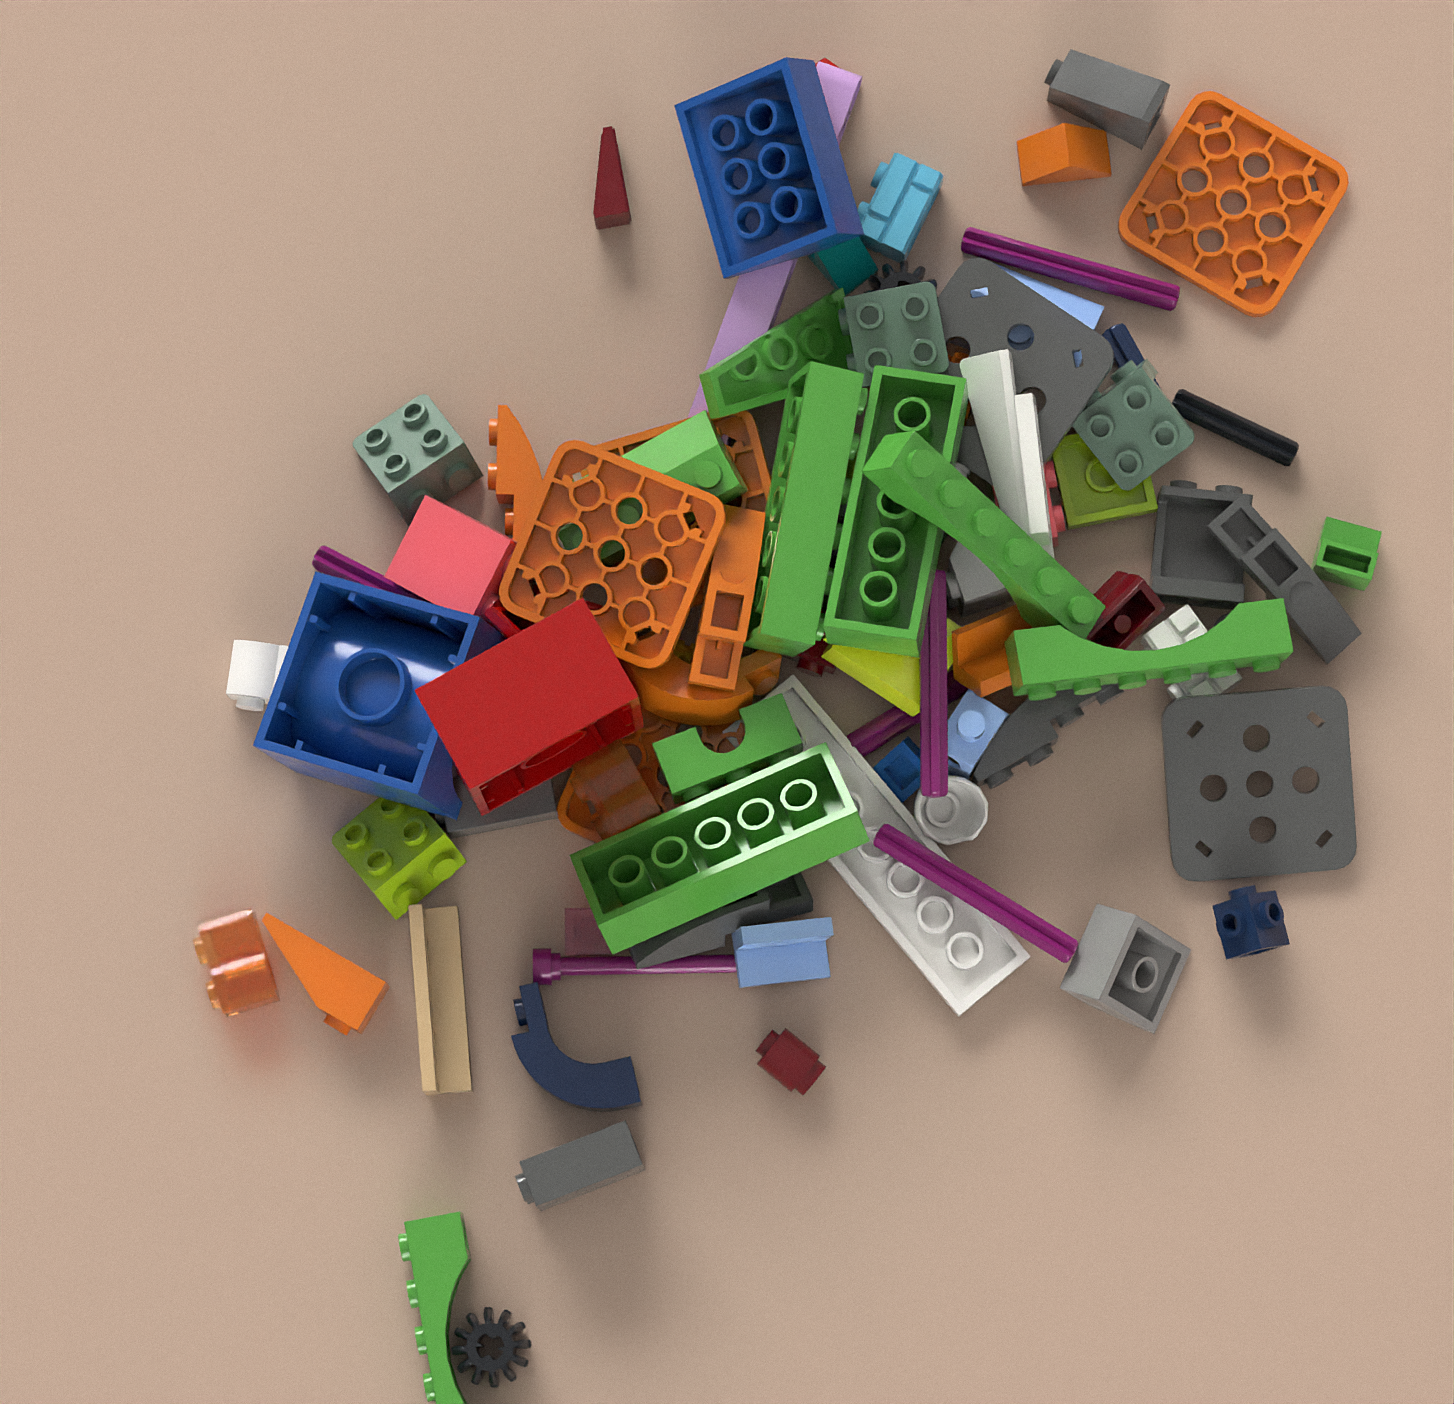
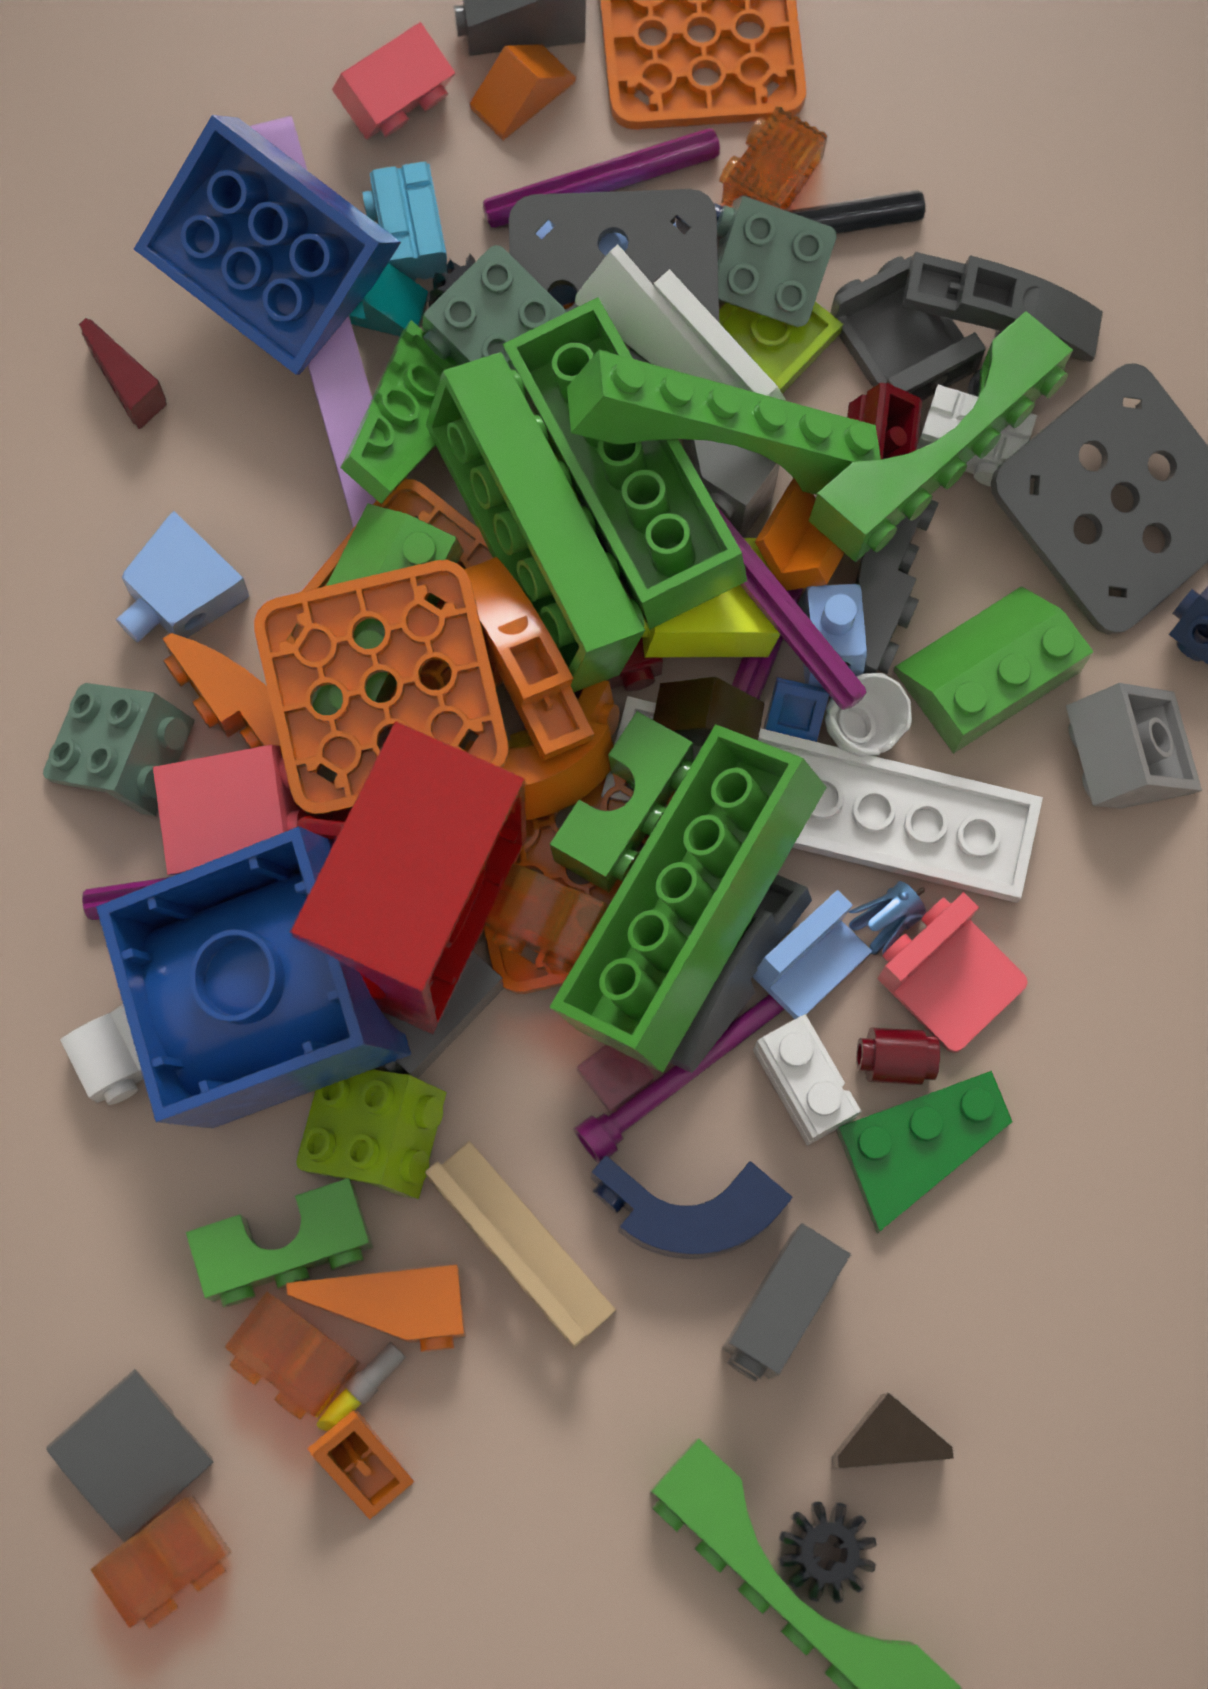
camera: 45 degrees left, 5 degrees down
(61, 1035) = (162, 1562): none -> clear orange brick
(89, 950) = (129, 1455): none -> dark grey slope
(232, 1065) = (361, 1464): none -> orange slope
(268, 1017) = (361, 1386): none -> light grey piece
(321, 898) = (329, 1232): none -> bright green arch
(539, 369) = (178, 583): none -> light blue torso
(588, 1305) = (890, 1436): none -> dark brown slope
(712, 1030) = (806, 1079): none -> white brick
(762, 1130) = (920, 1142): none -> green wing
(831, 720) = (698, 704): none -> dark brown slope
(867, 960) = (893, 912): none -> flat silver piece
(870, 1032) = (951, 974): none -> coral bracket
(966, 92) = (394, 82): none -> coral brick
(975, 893) = (952, 773): magenta axle -> none
(1070, 837) = (993, 666): none -> bright green slope
(1200, 350) = (776, 163): none -> clear orange brick
(1346, 553) = (1039, 248): bright green piece -> none

